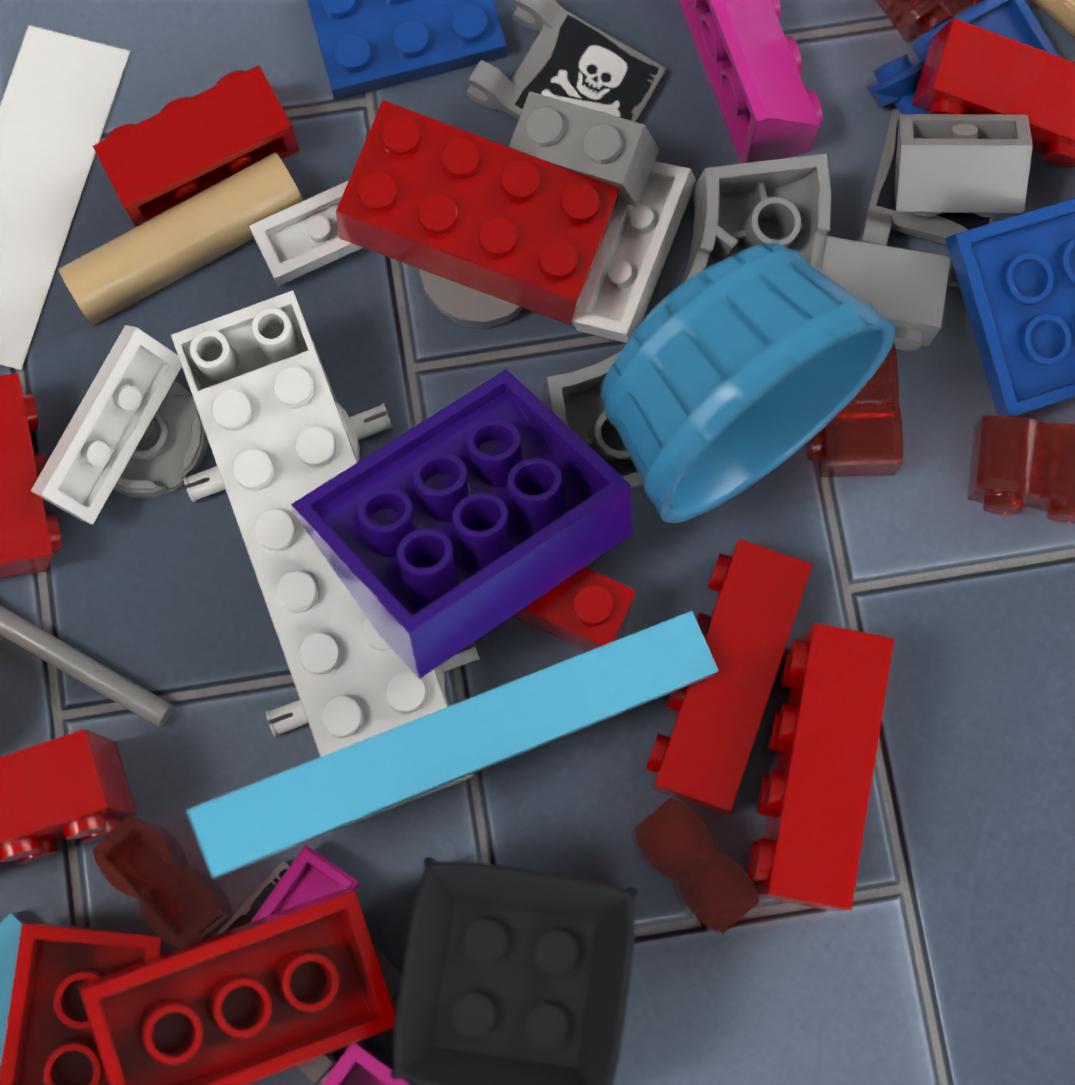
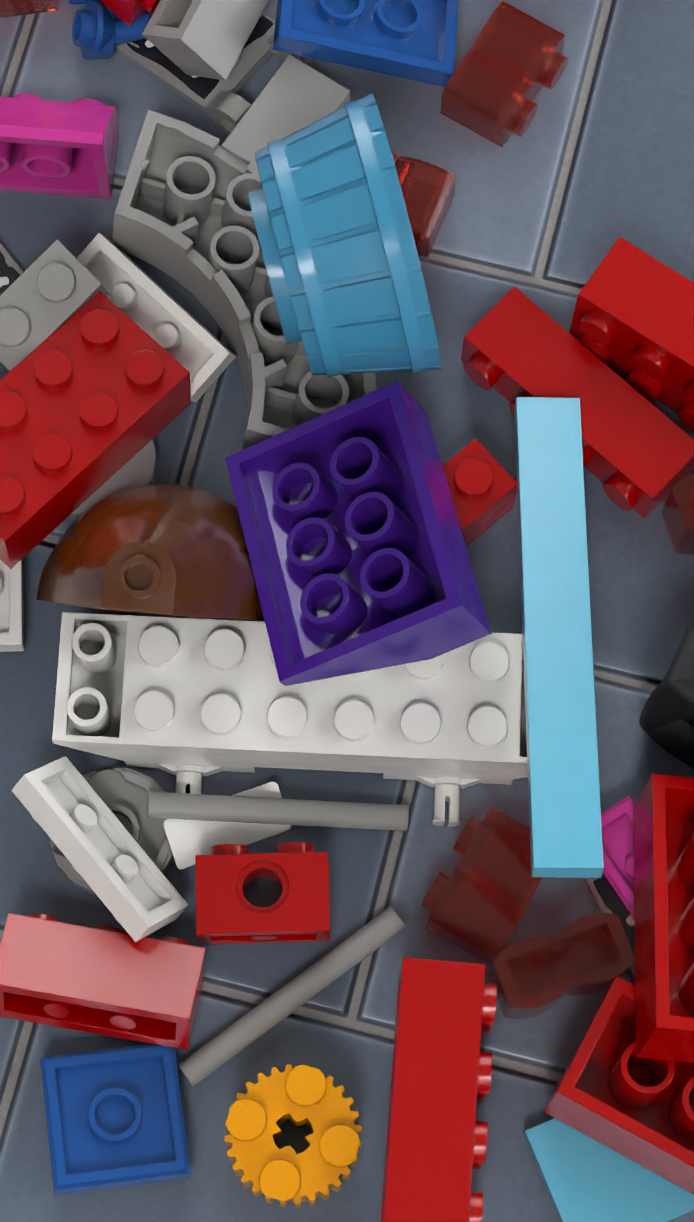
camera: 70 degrees left, 5 degrees down
(101, 563) = (296, 917): none -> red brick
(189, 528) = (197, 836): none -> white sticker
(199, 771) = (487, 889): none -> clear red brick
(215, 567) = (277, 811): none -> light grey bar
(362, 349) = (155, 554): none -> reddish brown cone

